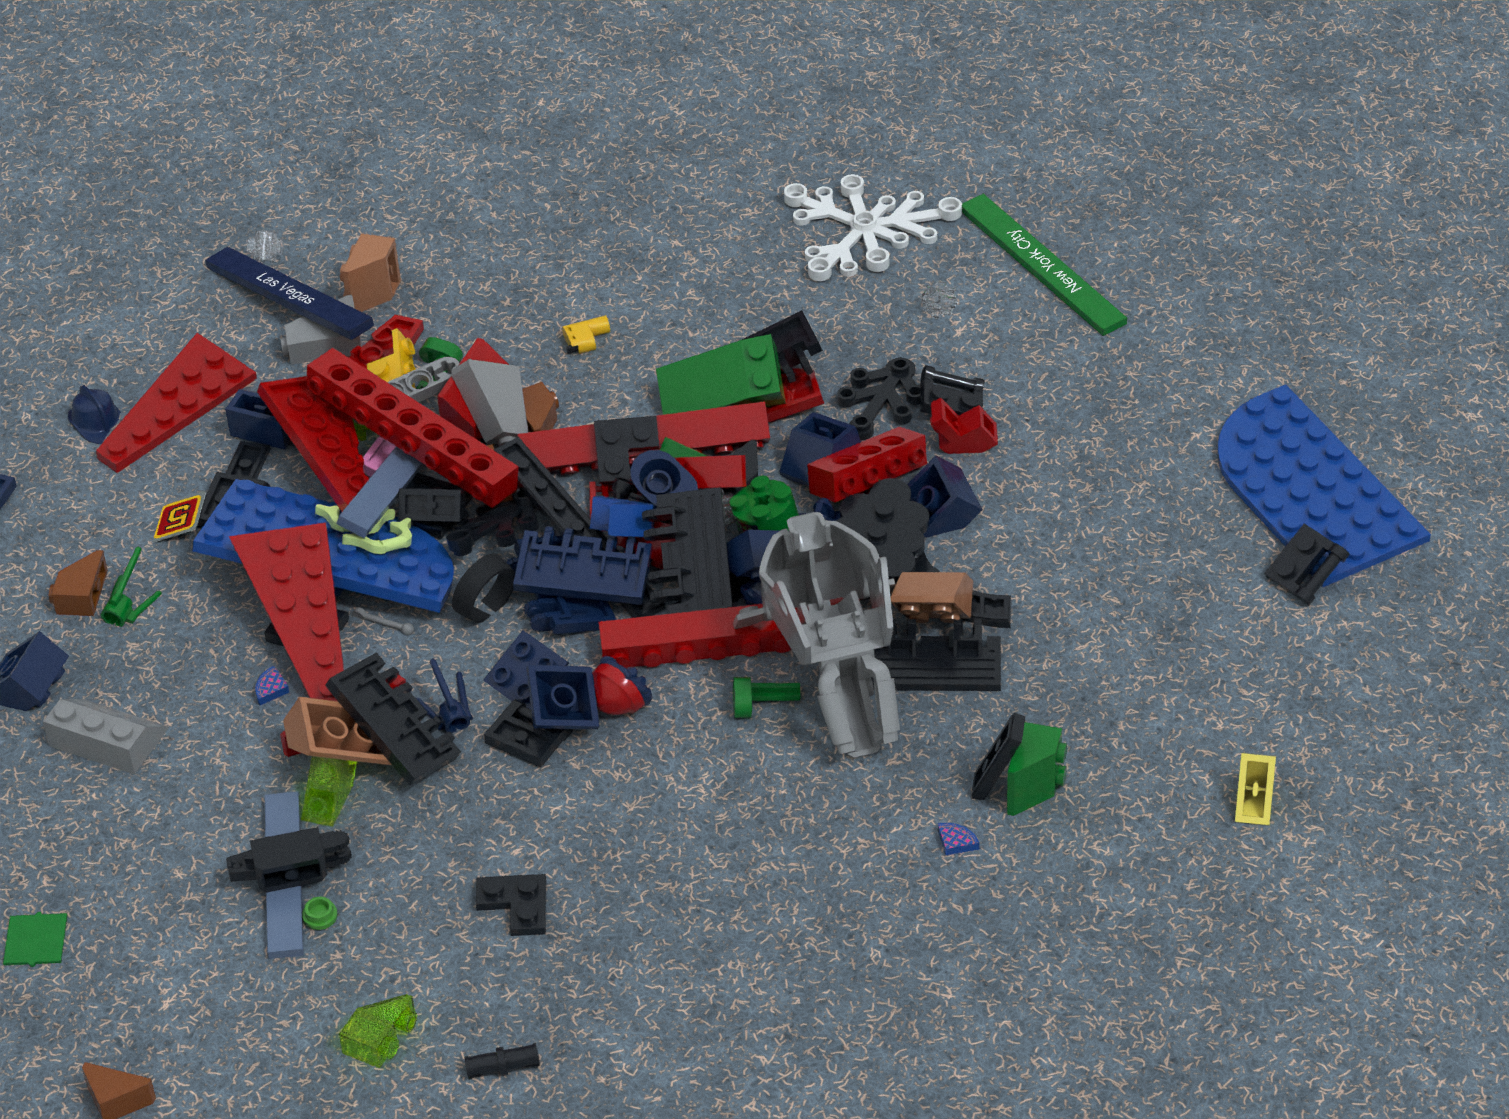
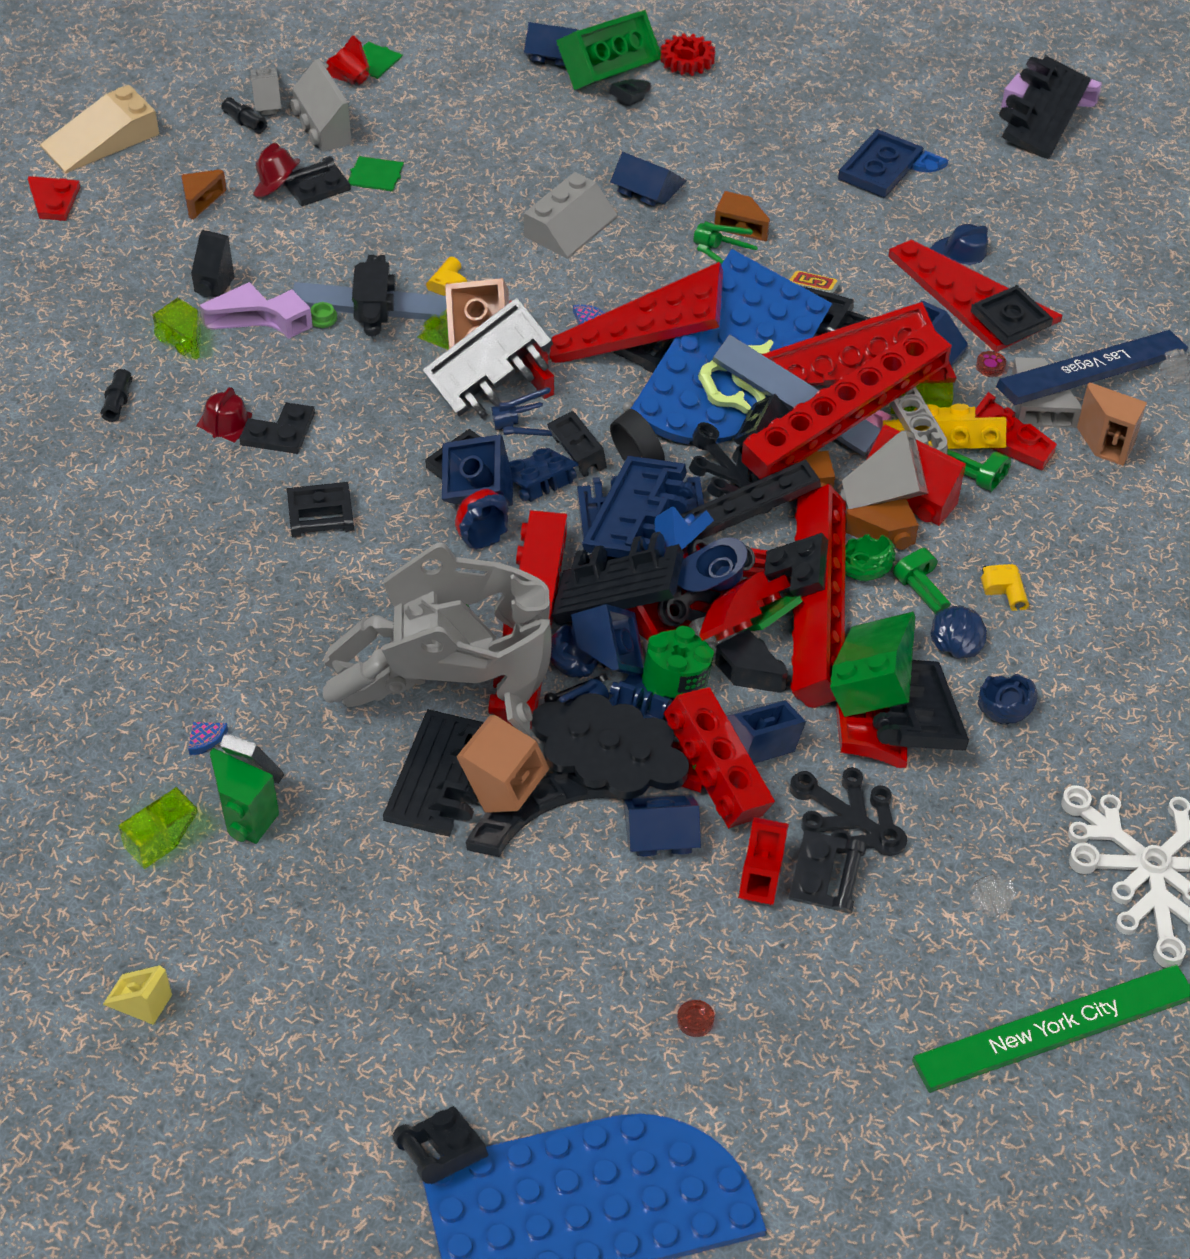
camera: 100 degrees right, 5 degrees up
(66, 1026) = (273, 169): none -> dark red piece
(73, 982) = (318, 187): none -> black plate
(216, 358) = (1011, 315): none -> black tile
(236, 819) = (445, 275): none -> yellow piece
(272, 1021) = (212, 264): none -> black slope
(278, 372) = (991, 363): none -> clear red tile
(324, 978) = (247, 307): none -> lavender arch
(483, 642) = (578, 442): none -> black hinge
(509, 954) = (224, 415): none -> dark red piece
(581, 386) = (913, 571): none -> green piece
(583, 408) = (869, 557): none -> green hair
(621, 836) = (320, 501): none -> black plate
(653, 350) = (959, 632): none -> dark blue hair
(725, 313) = (1007, 698): none -> dark blue hair
(1084, 826) = (157, 827): none -> clear neon green slope
(1119, 454) = (695, 1018): none -> clear red tile

